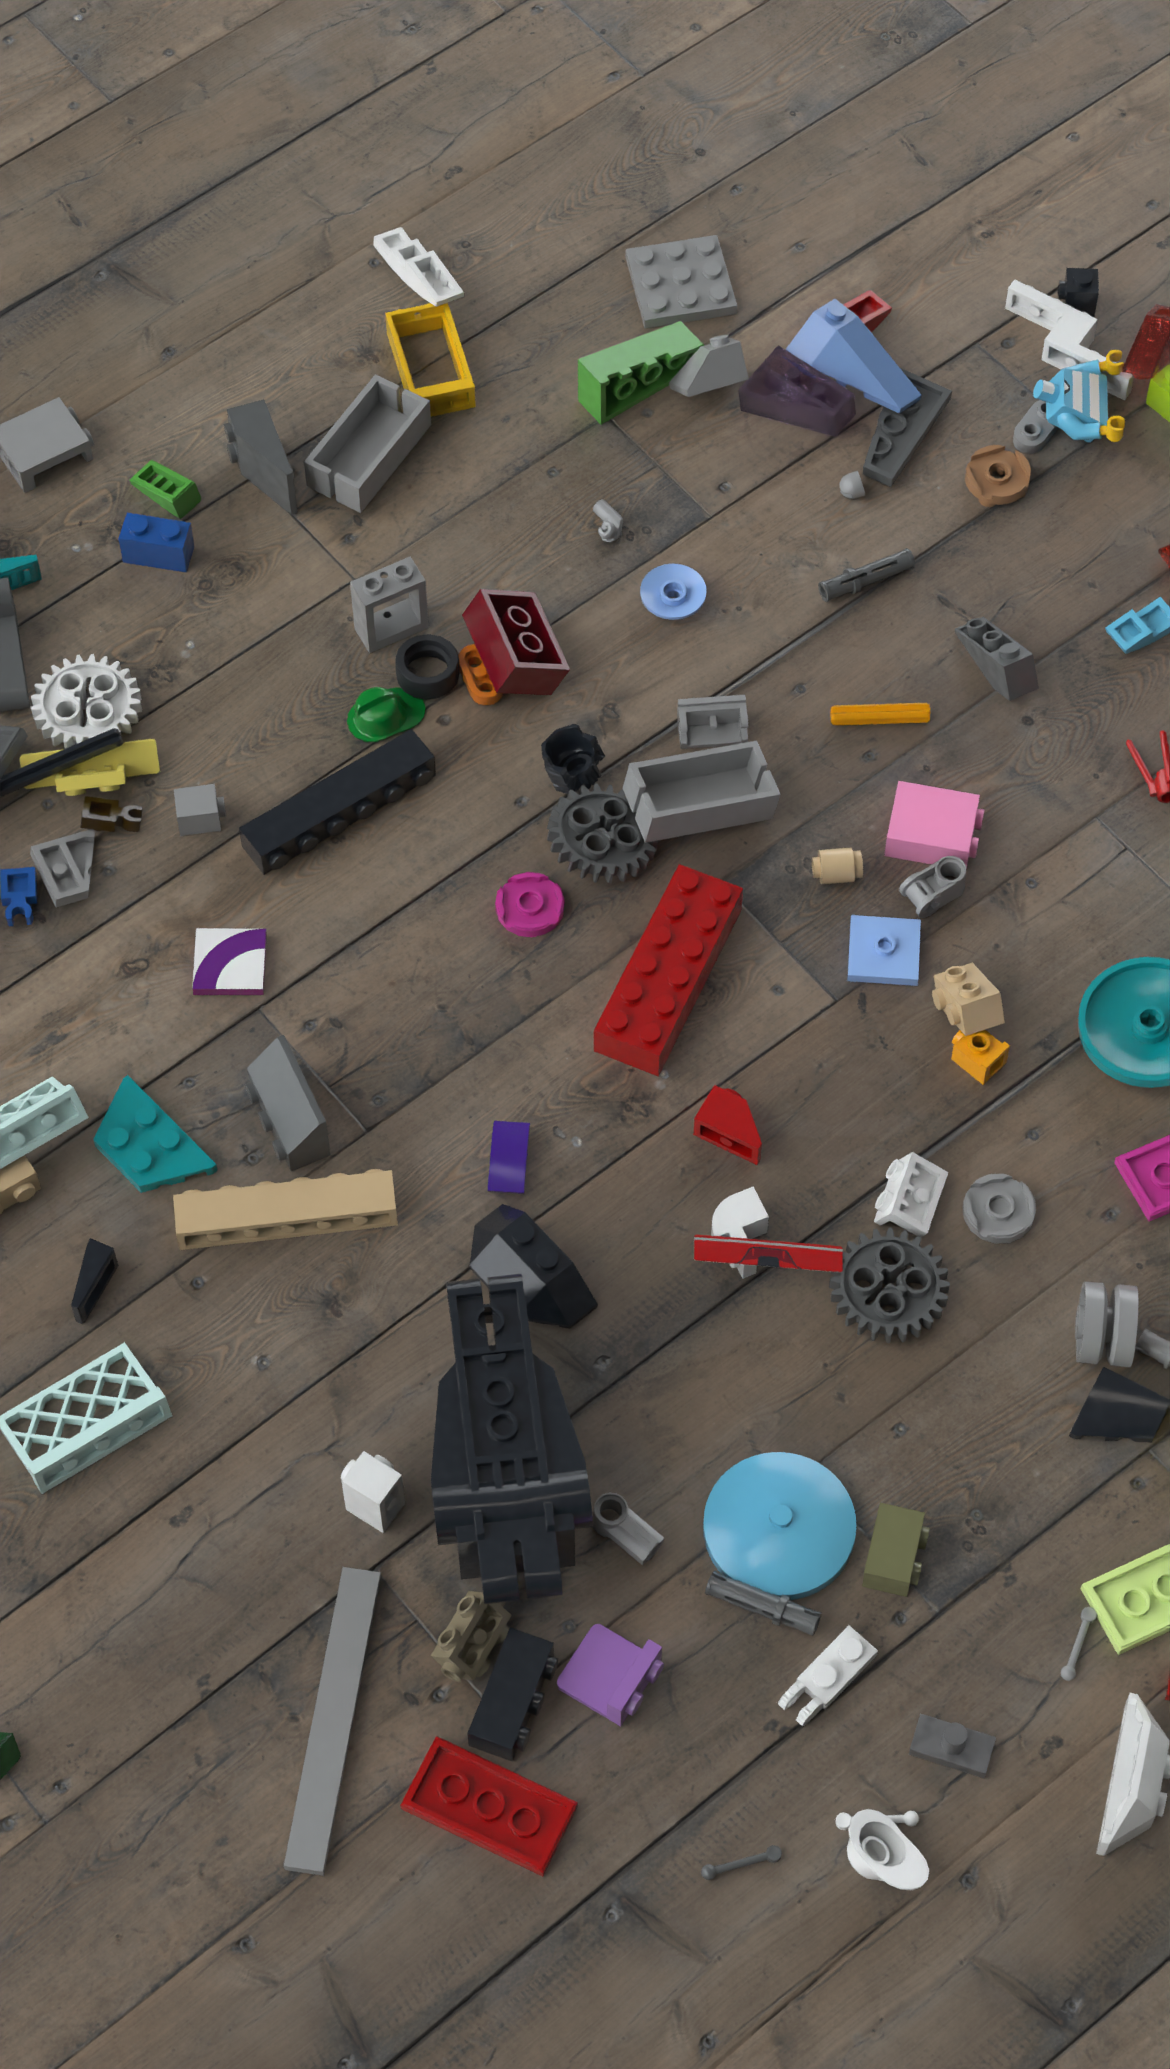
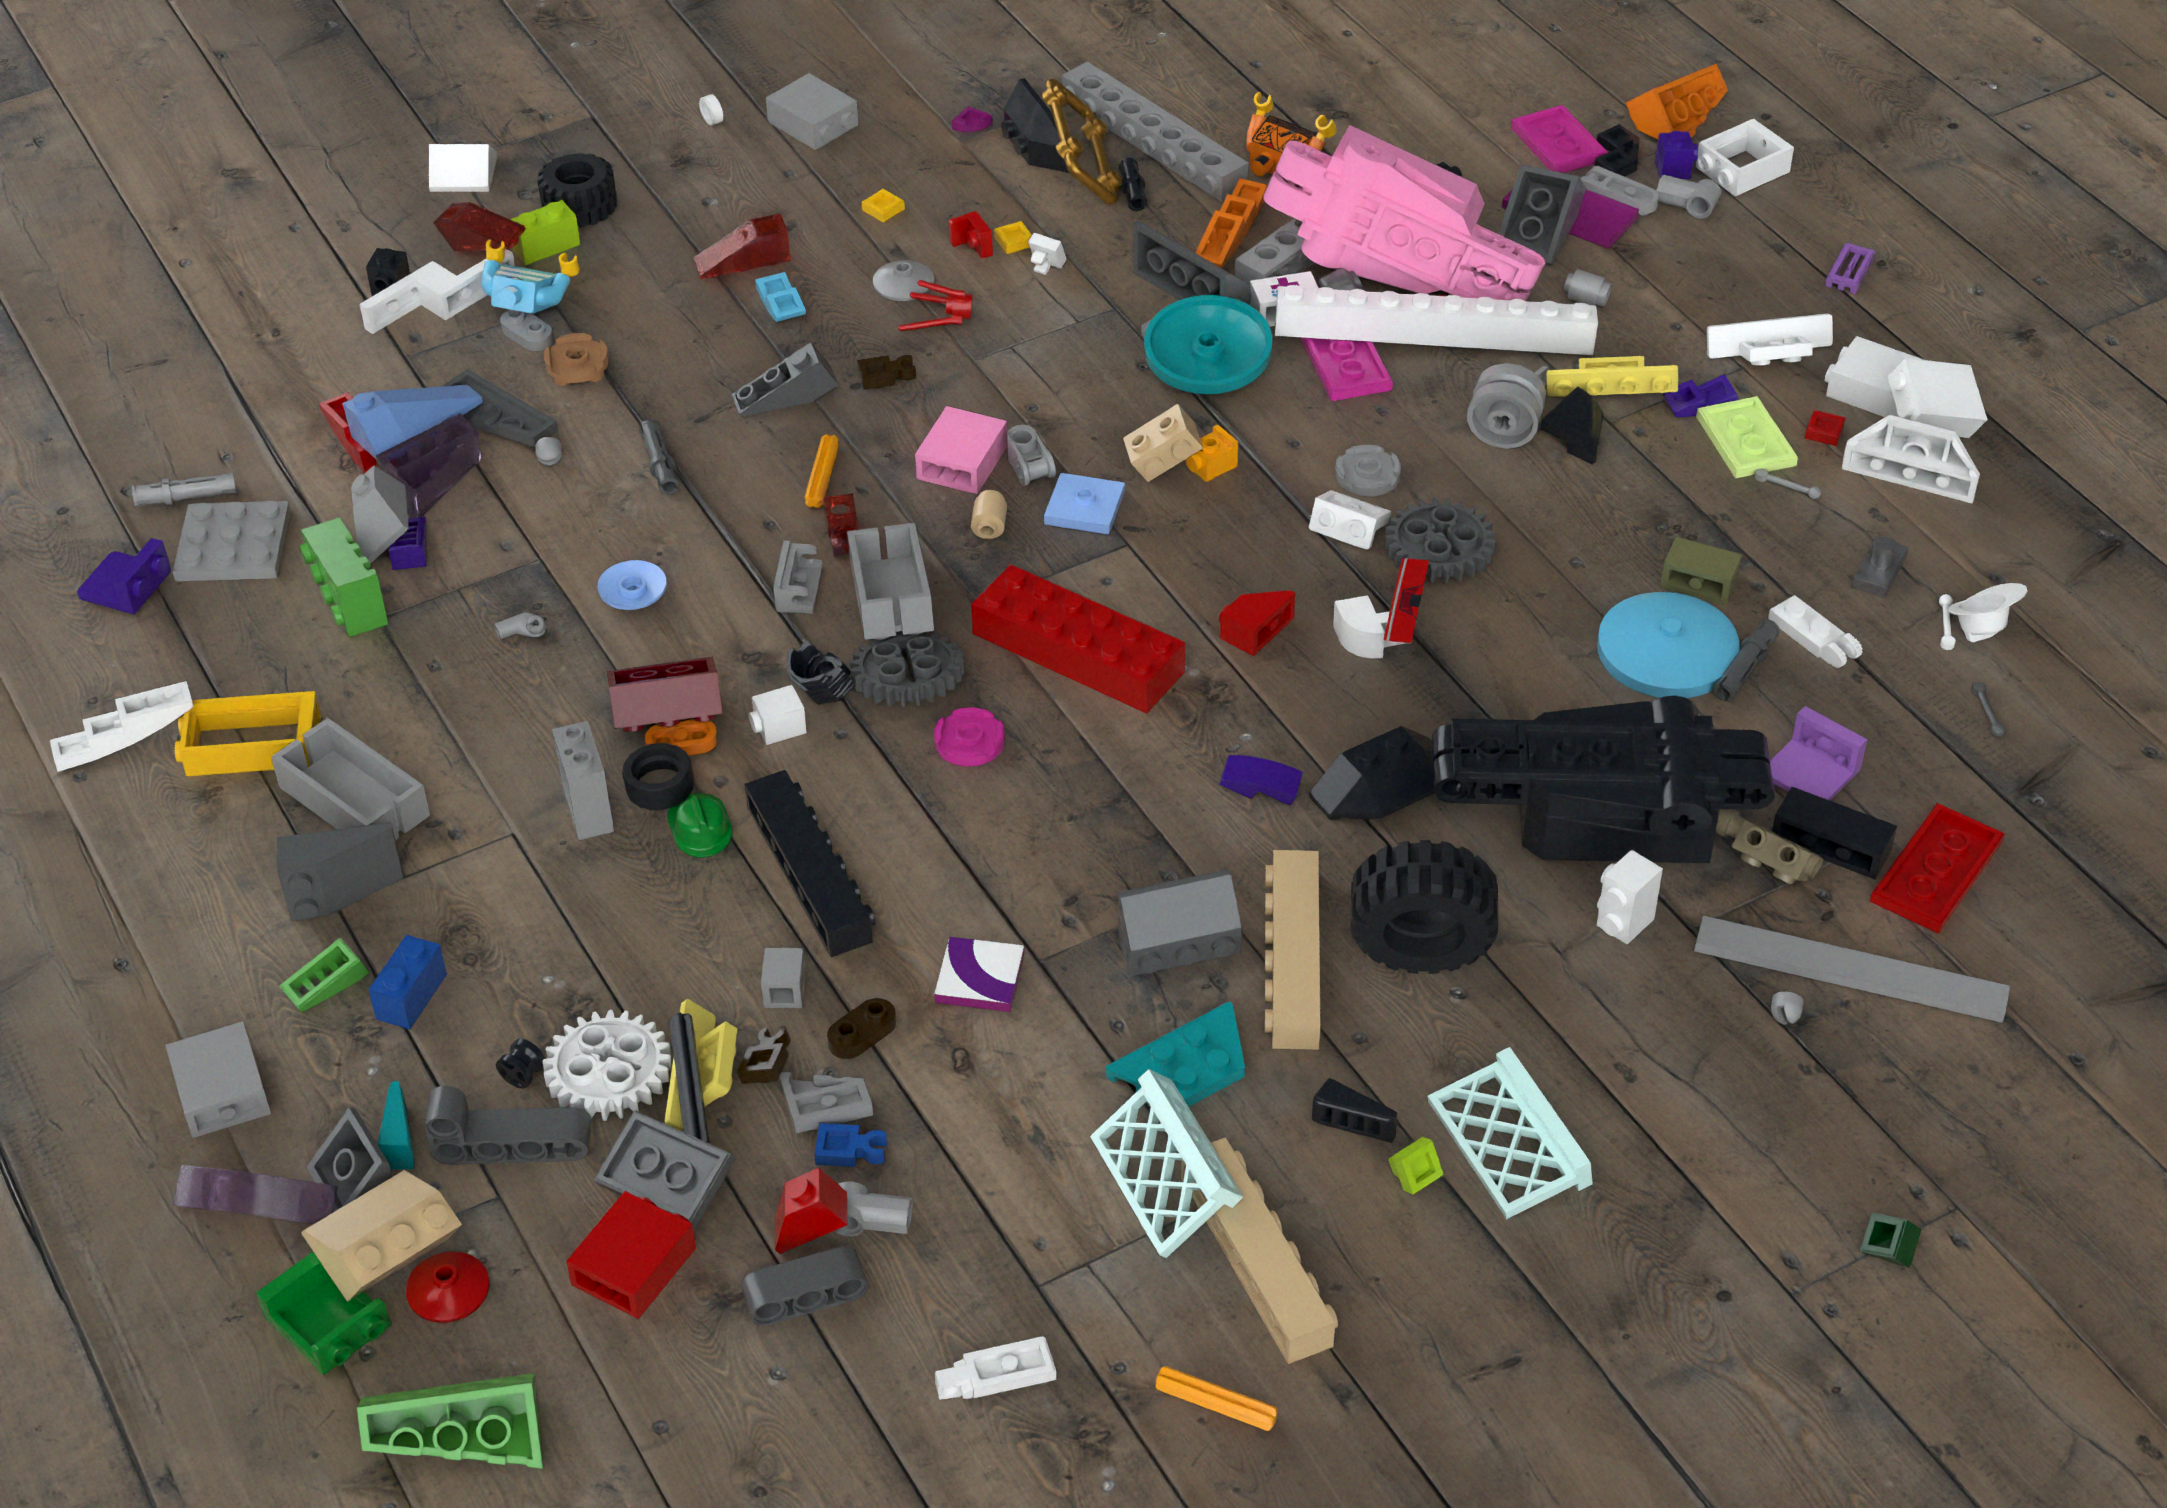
camera: 80 degrees left, 15 degrees down
(36, 1337) = (1416, 1165): none -> lime tile
(80, 641) = (520, 1063): none -> black wheel
(154, 880) = (867, 1026): none -> dark brown plate
(267, 1655) = (1786, 1007): none -> light grey hinge
(302, 1295) = (1424, 907): none -> black tyre
(520, 742) = (778, 715): none -> white brick
(606, 219) = (127, 580): none -> dark purple bracket
(700, 419) = (411, 547): none -> dark purple slope
(731, 217) = (178, 490): none -> light grey pin
(794, 744) = (839, 524): none -> clear red leg
(1043, 733) = (882, 372): none -> dark brown plate

